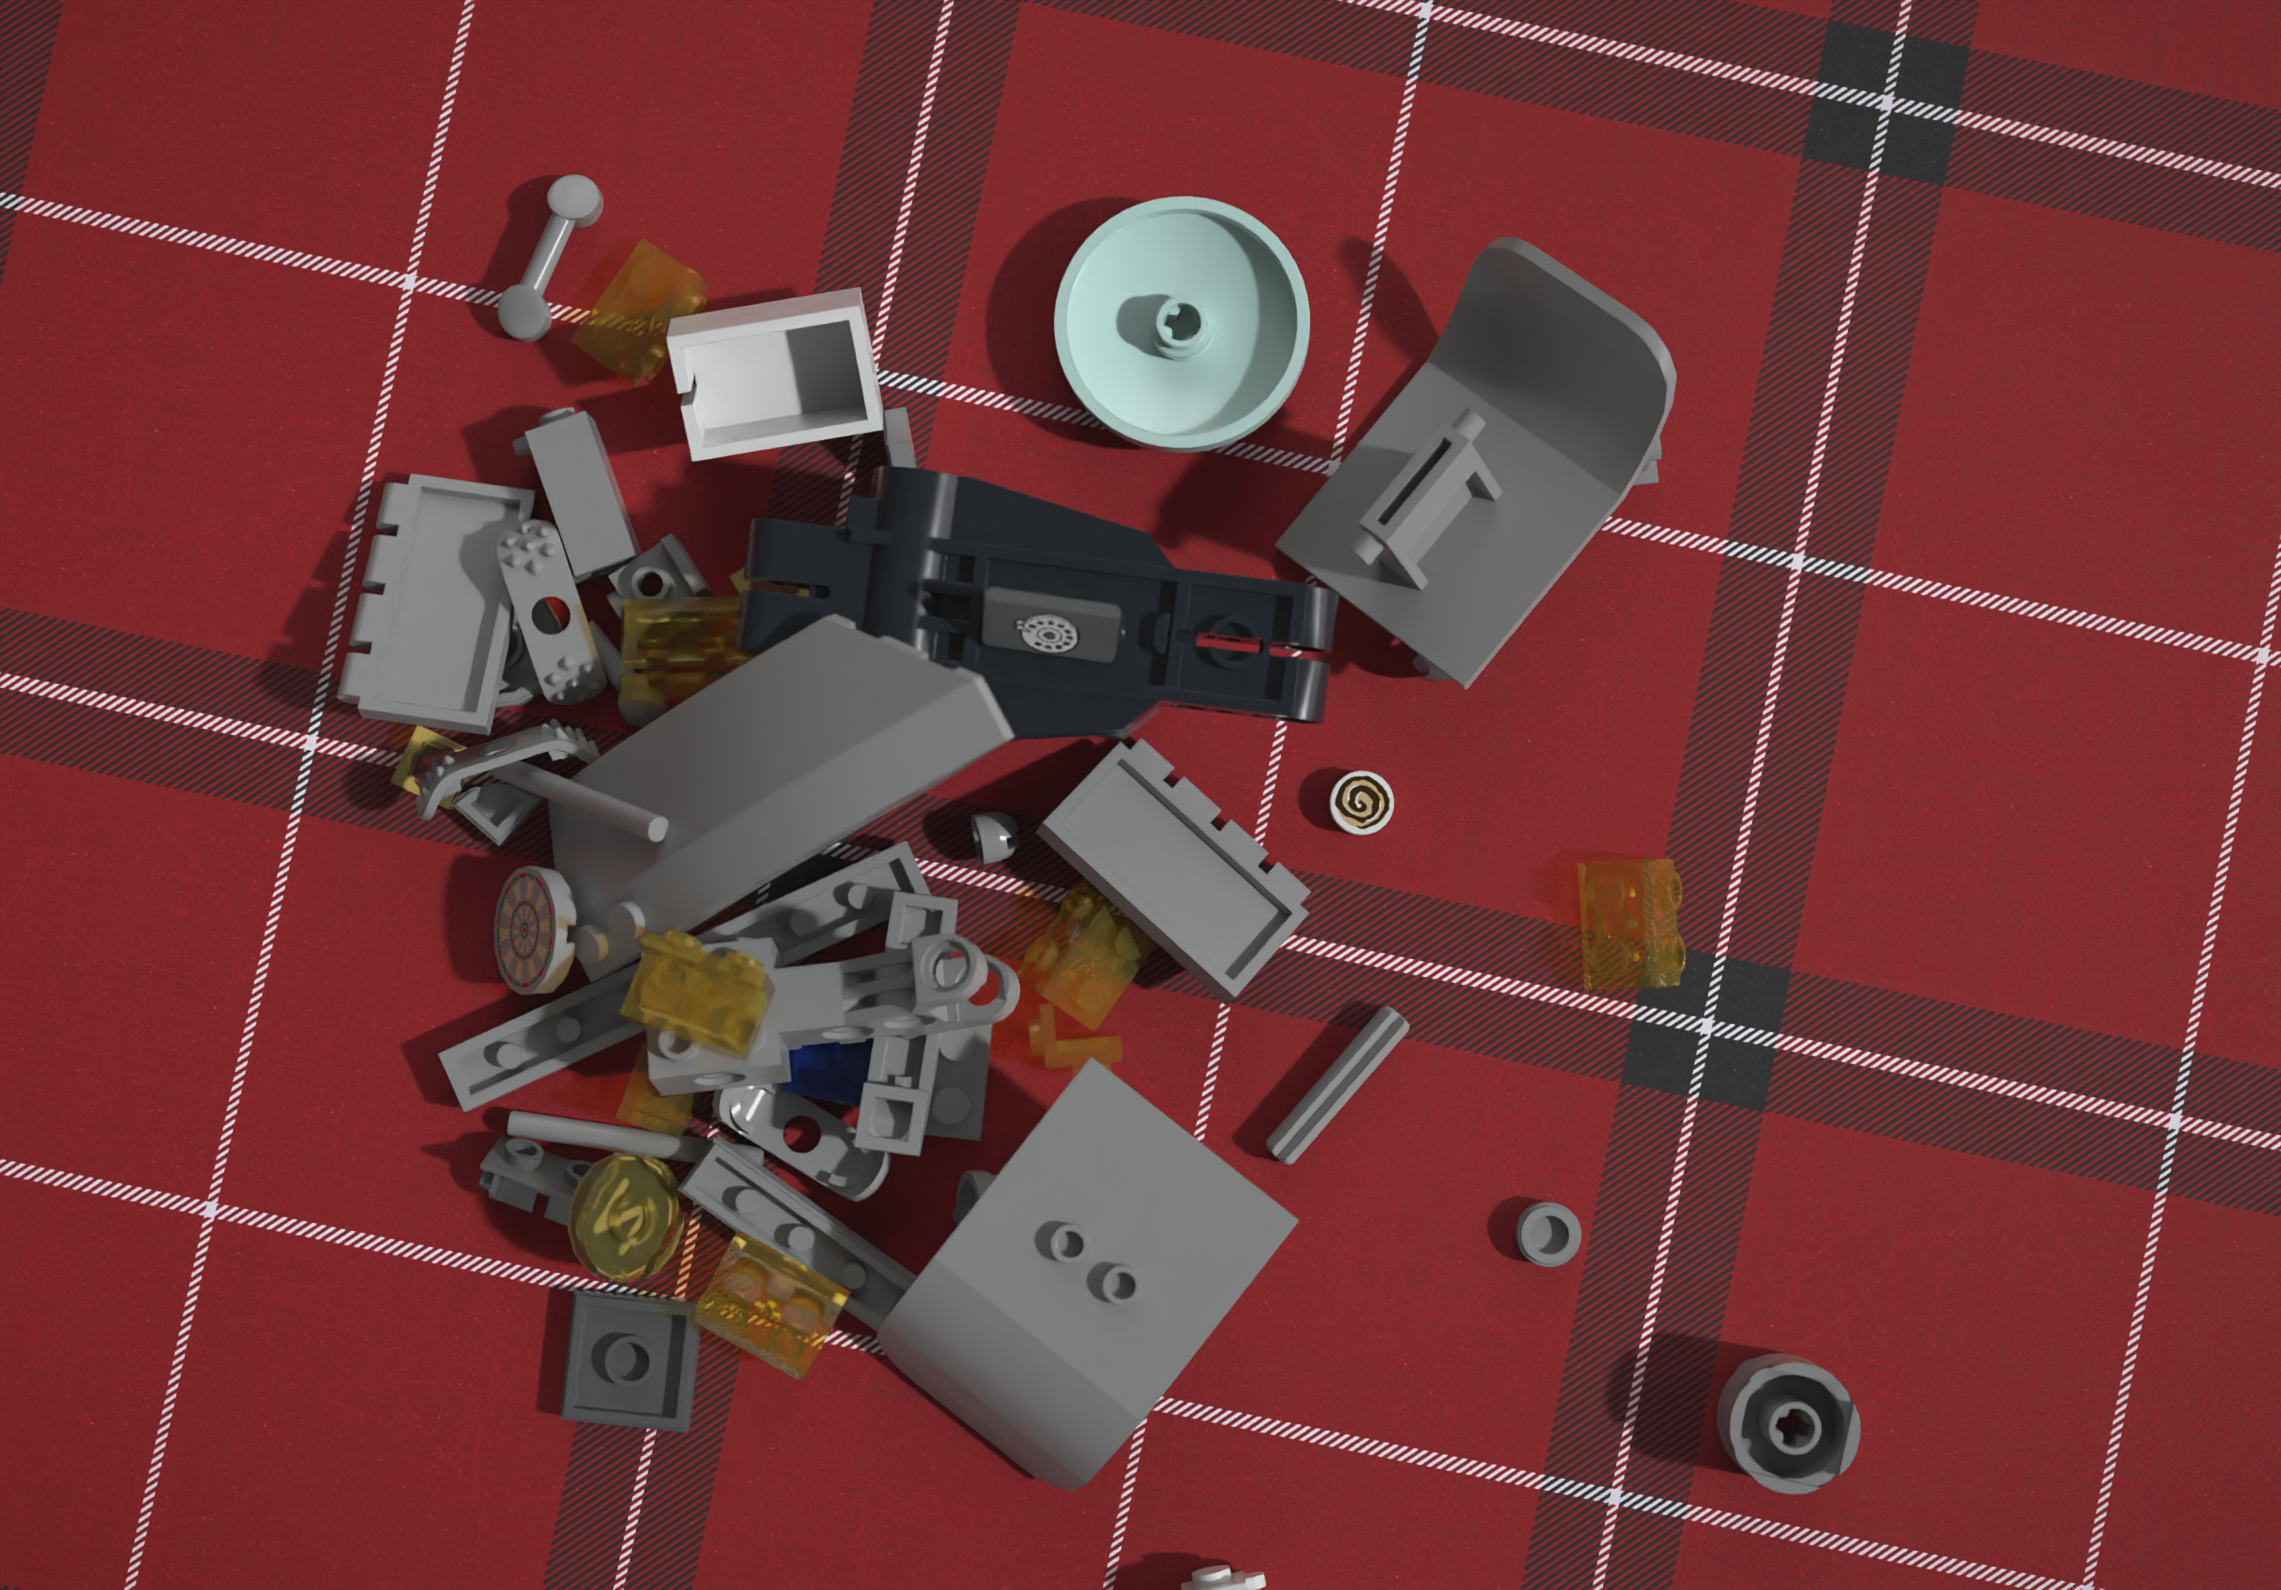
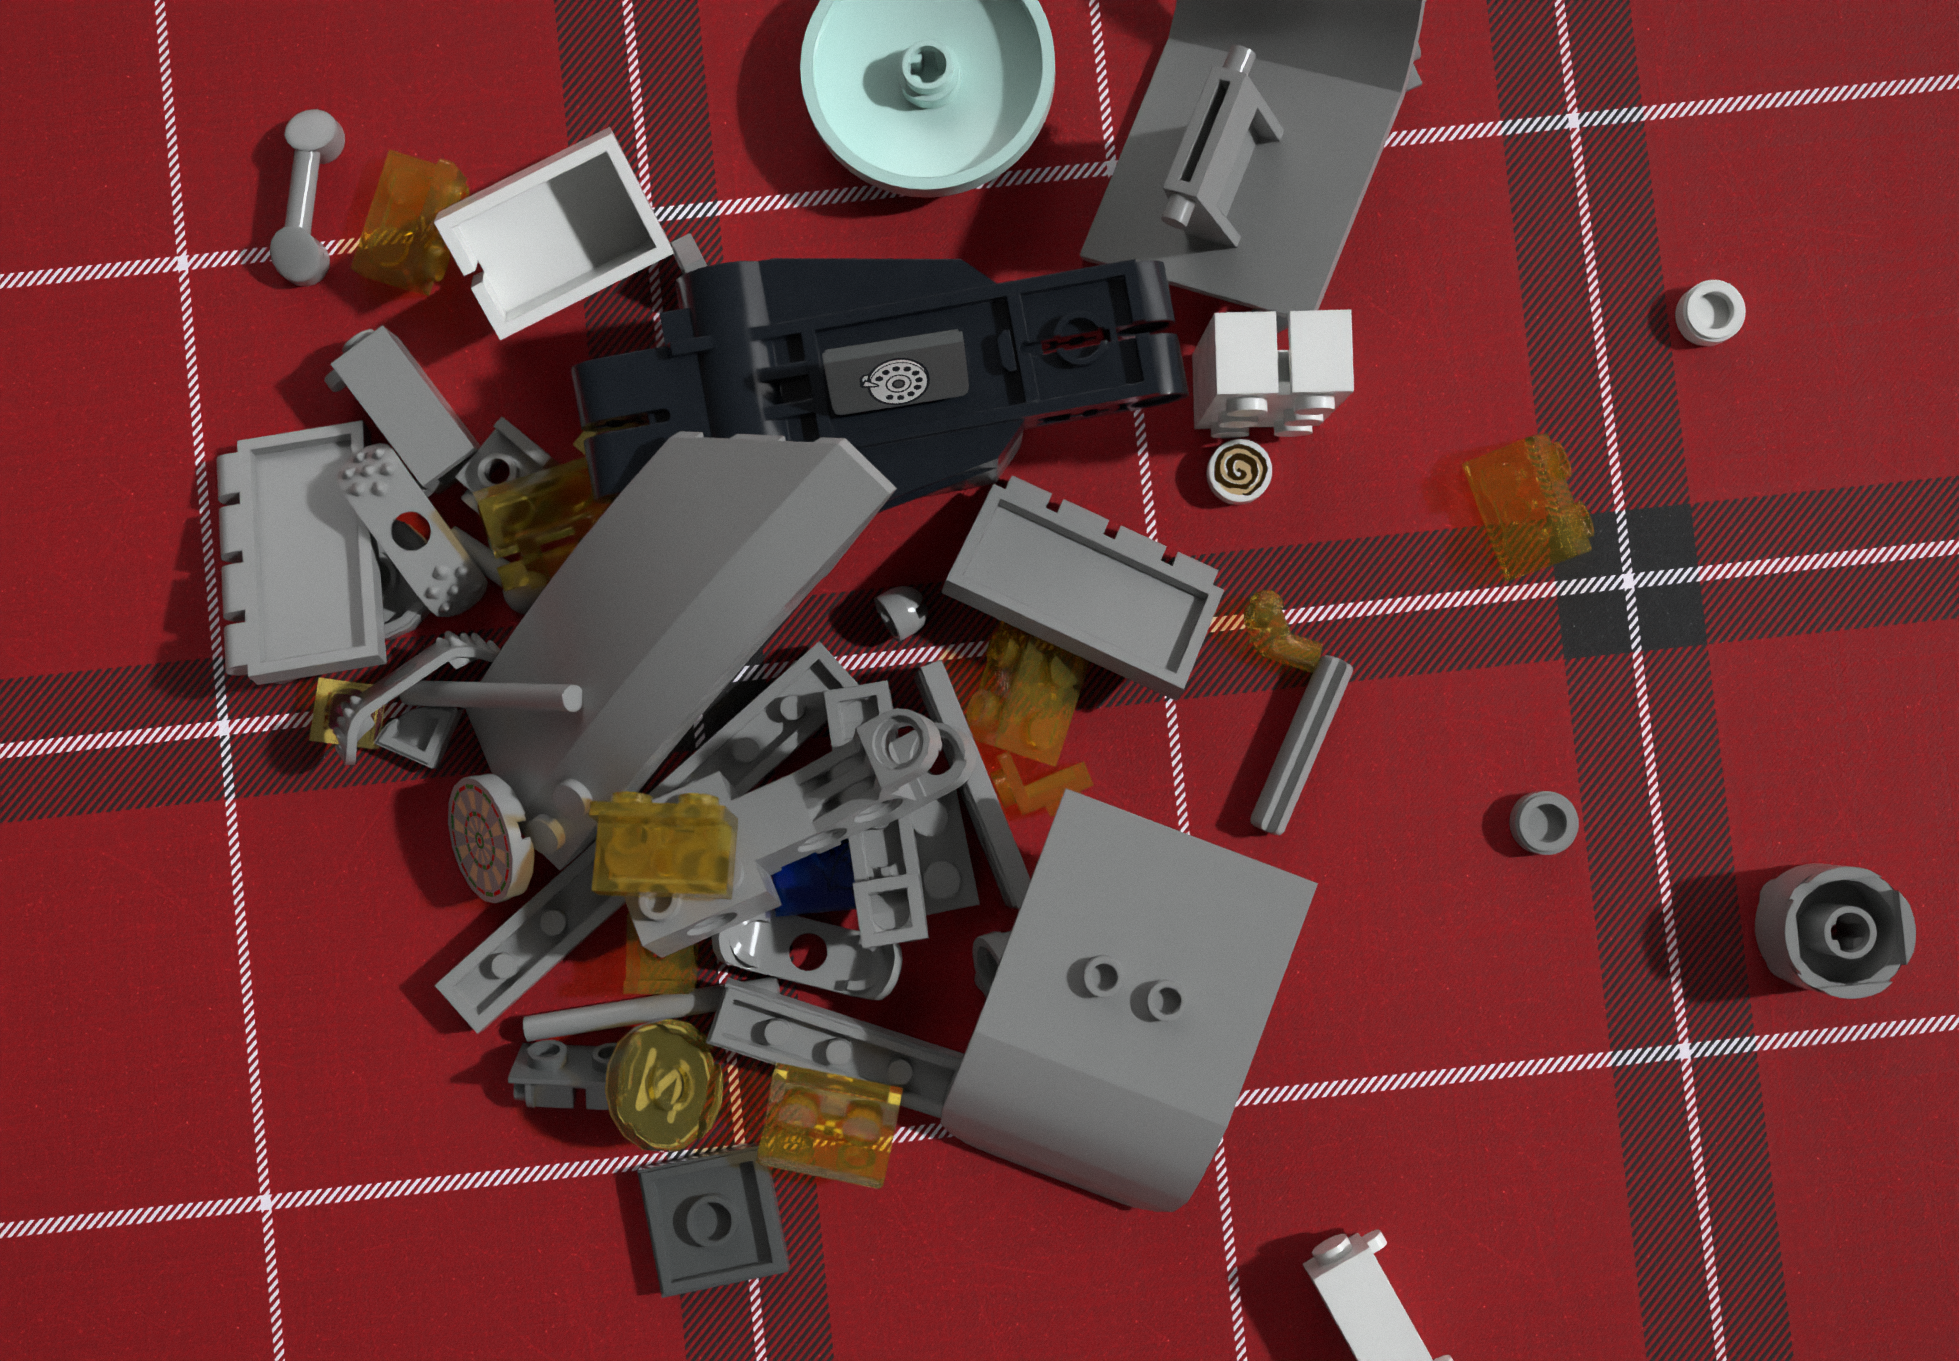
camera: 25 degrees left, 0 degrees up
(1011, 1031) = (978, 790): none -> light grey tile
(1342, 970) = (1272, 634): none -> clear yellow arm
(1398, 725) = (1250, 383): none -> white piece
(1868, 792) = (1710, 313): none -> white tile

